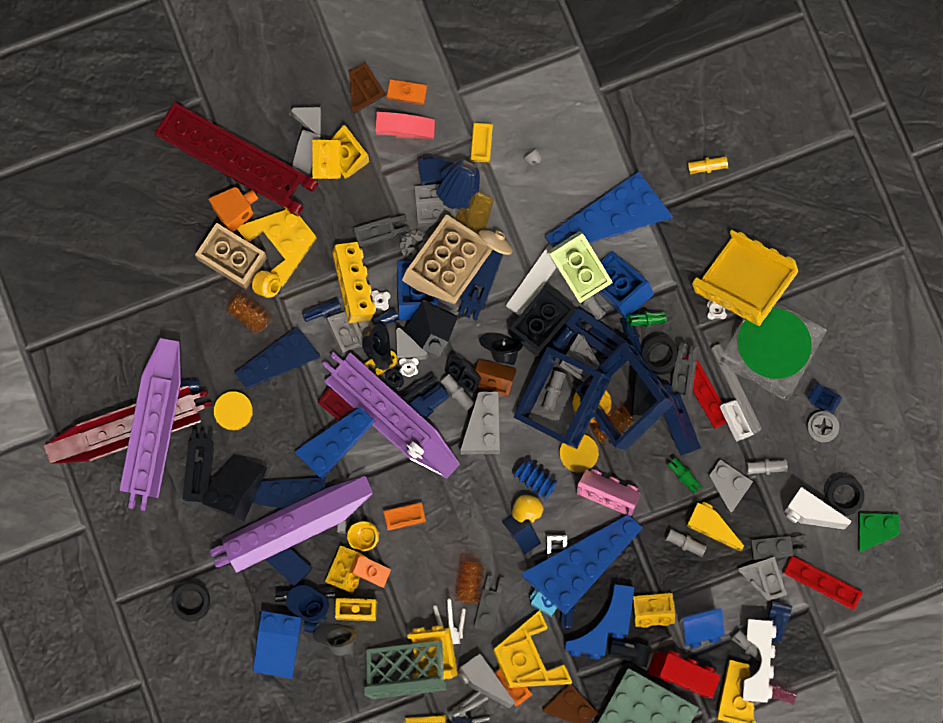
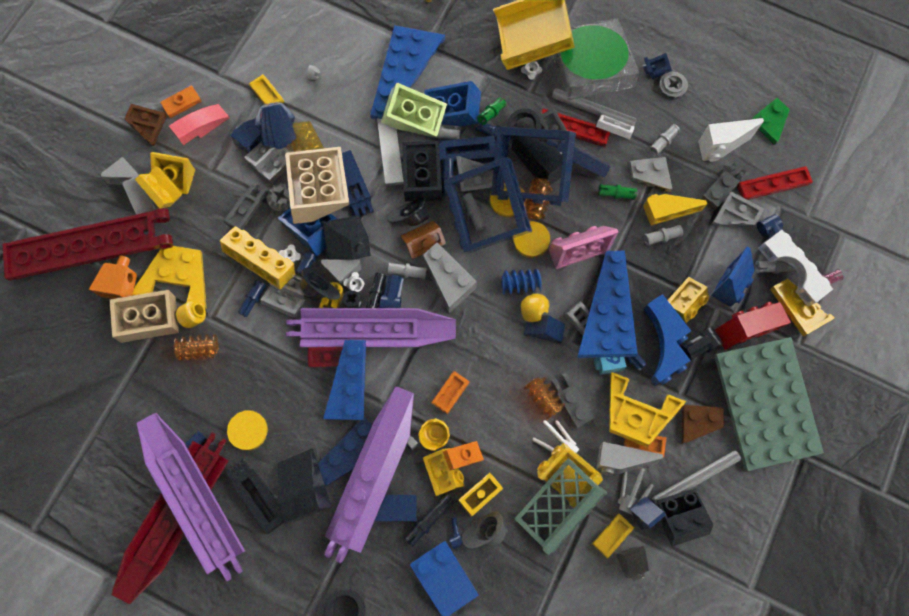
camera: 50 degrees left, 5 degrees down
(284, 355) = (251, 355): dark blue wing -> none
(307, 604) = (440, 524): dark blue piece -> none
(414, 450) = (415, 336): white plate -> none
(461, 370) = (399, 252): black slope -> none
(495, 241) = (338, 141): tan dish -> none
(852, 483) = (732, 102): black tyre -> none

